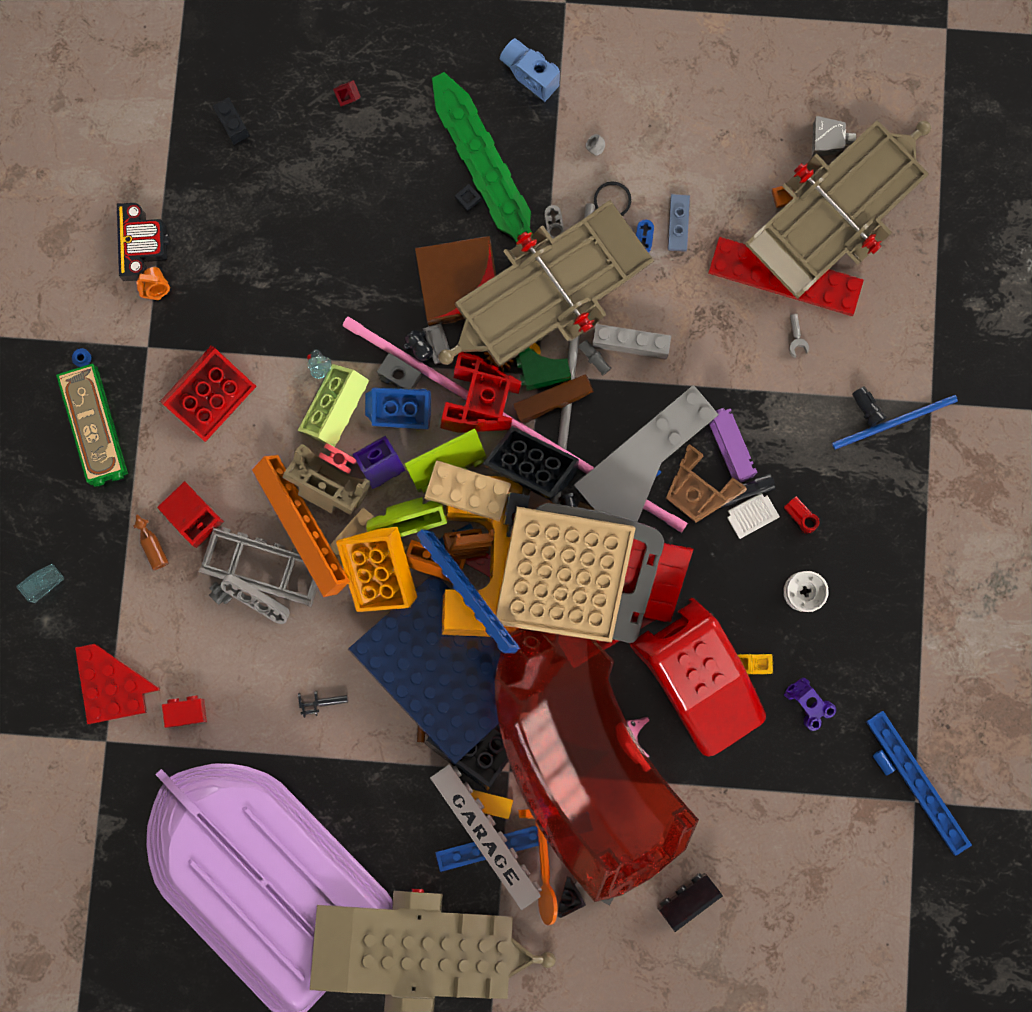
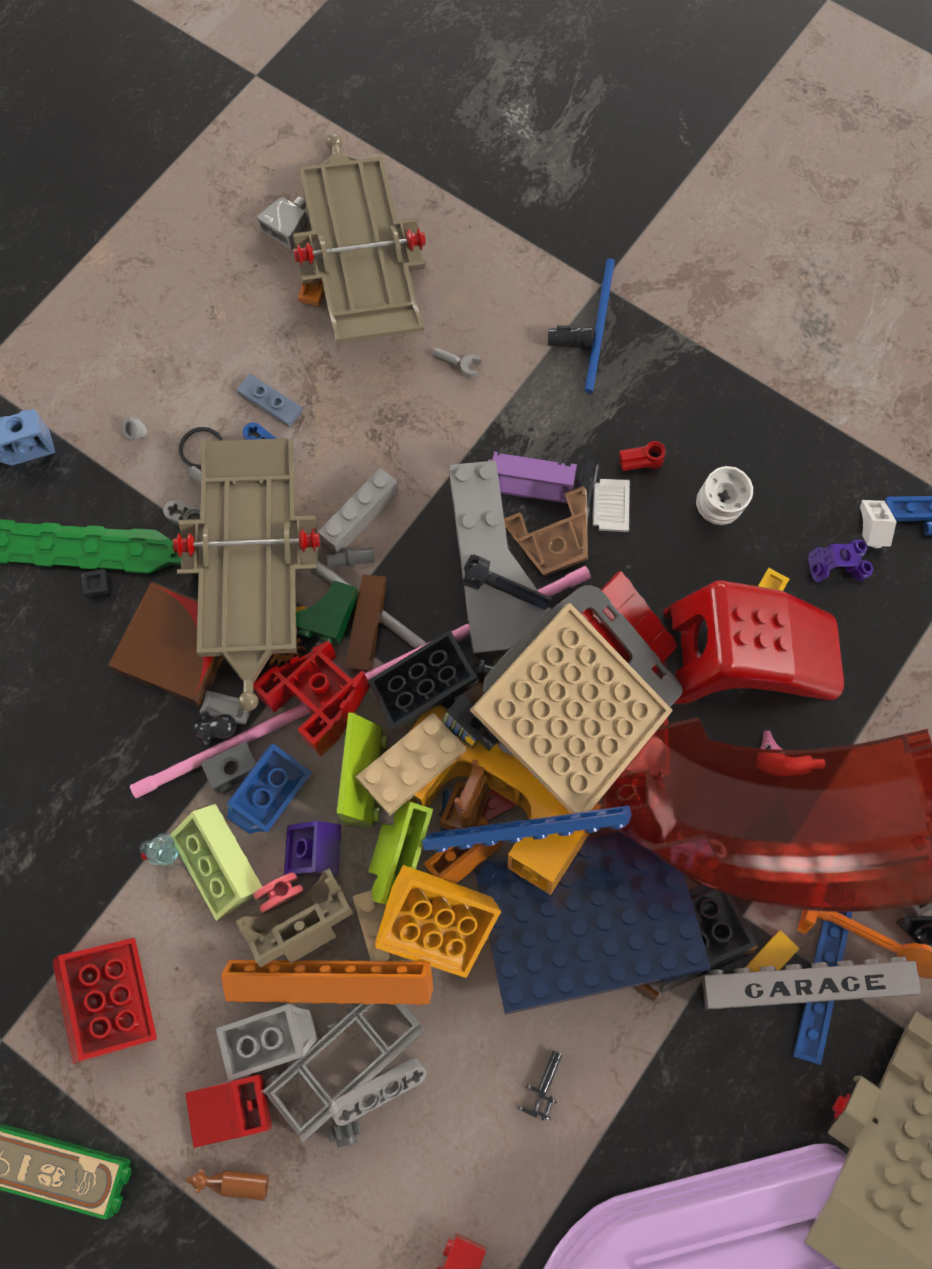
camera: 60 degrees left, 10 degrees down
(243, 510) = (266, 1040): none -> light grey slope
(627, 454) = (479, 574): none -> black piece
(738, 263) = (366, 358): red plate -> none
(856, 713) = (877, 523): none -> white arch

